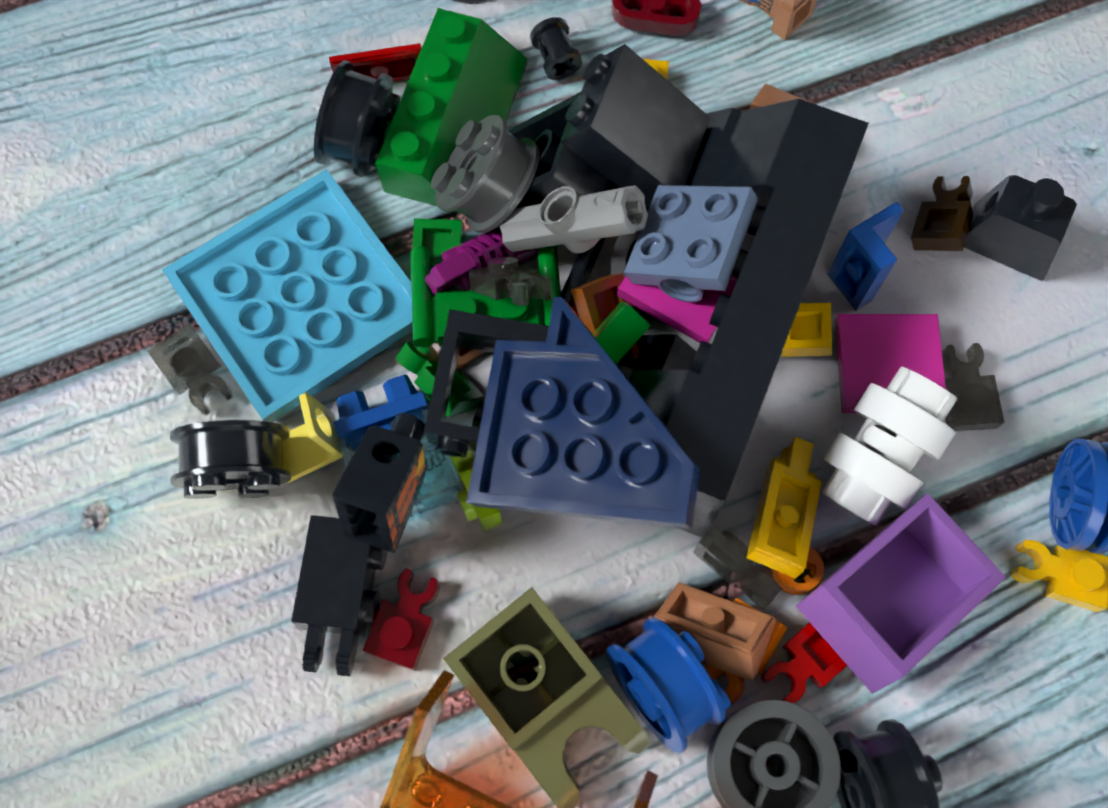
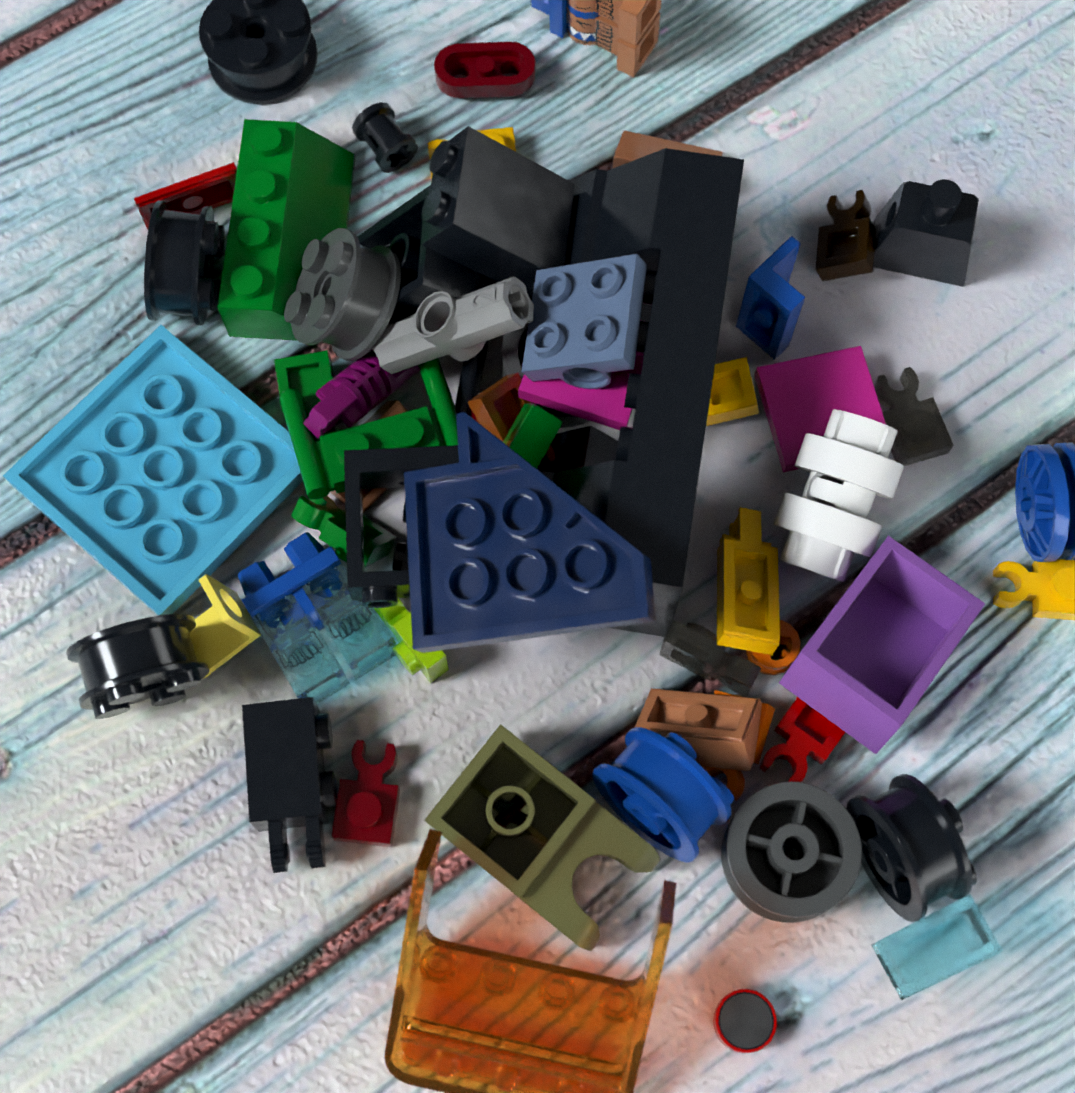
camera: 15 degrees left, 0 degrees up
(189, 365) = (60, 573): clear smoke plate -> none
(382, 483) = (316, 652): black torso -> none
(508, 279) = (397, 404): clear smoke plate -> none

